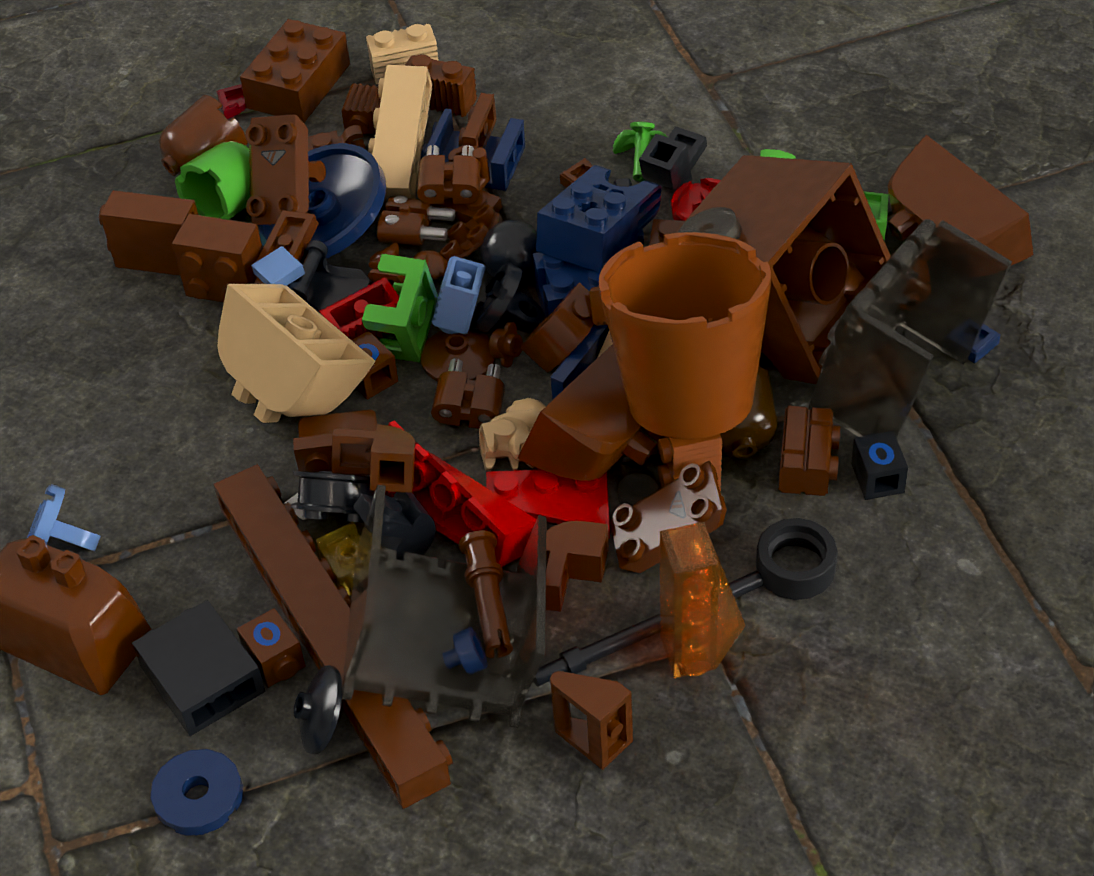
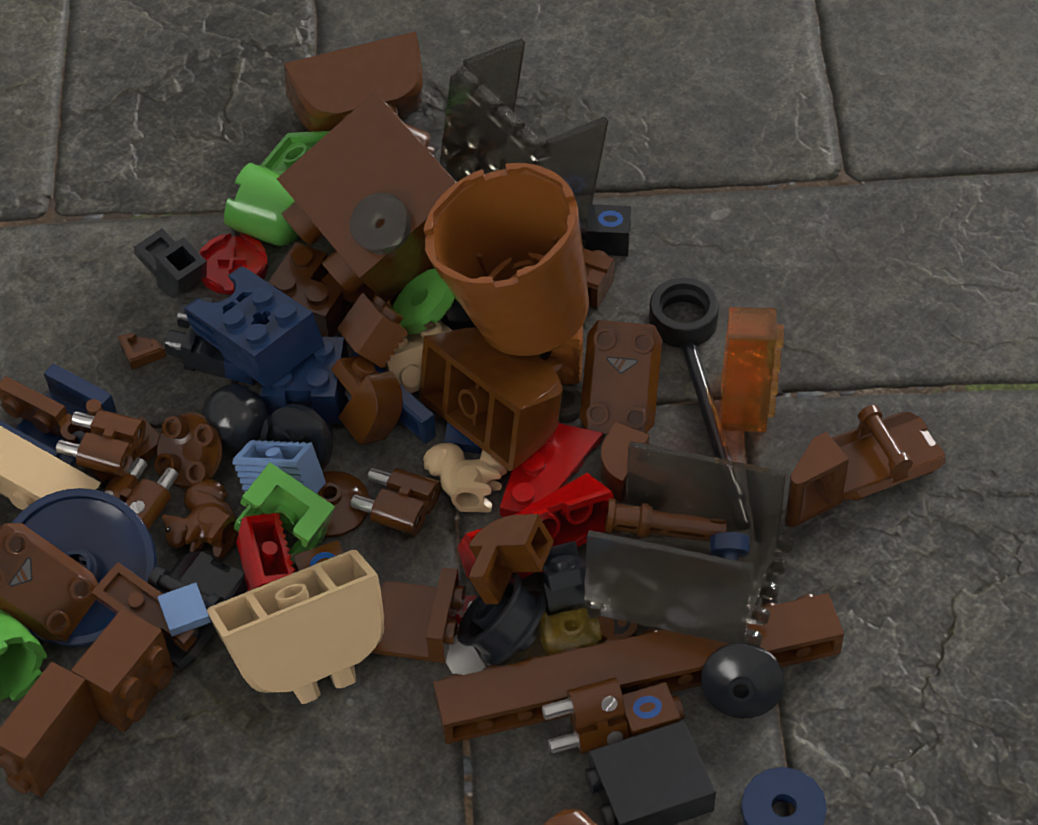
camera: 75 degrees left, 5 degrees up
(250, 589) = (595, 719): none -> reddish brown piece
(505, 344) = (348, 455): reddish brown plate -> none
(639, 138) = (125, 280): bright green plant -> none
(674, 788) = (887, 452): none -> reddish brown shield

